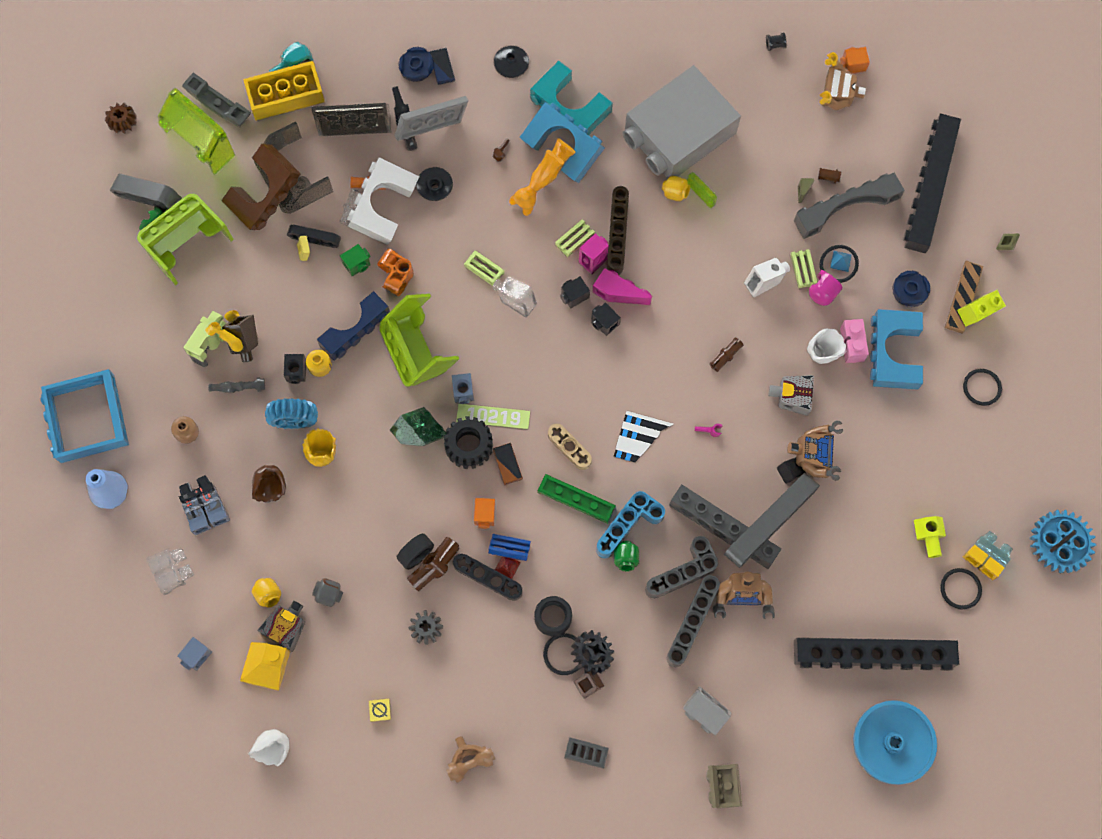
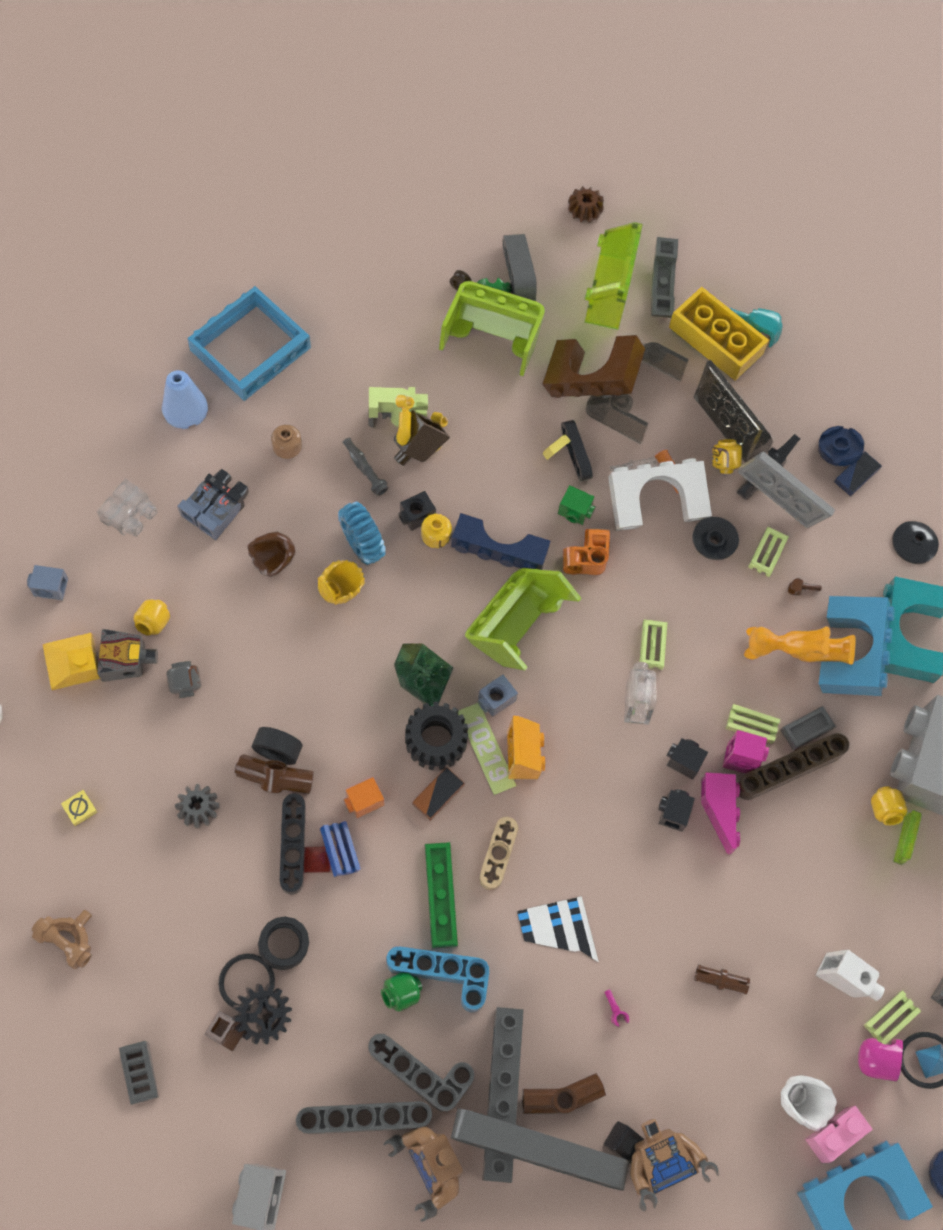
camera: 55 degrees right, 5 degrees down
(128, 240) = (458, 278): none -> dark brown bush
(379, 140) = (726, 456): none -> yellow head
(470, 167) = (761, 566): none -> yellowish green tile
(511, 391) = (524, 749): none -> light orange slope
(597, 205) = (808, 728): none -> dark grey tile
(749, 480) = (545, 1100): none -> reddish brown piece
(794, 393) = (723, 1092): light grey torso -> none

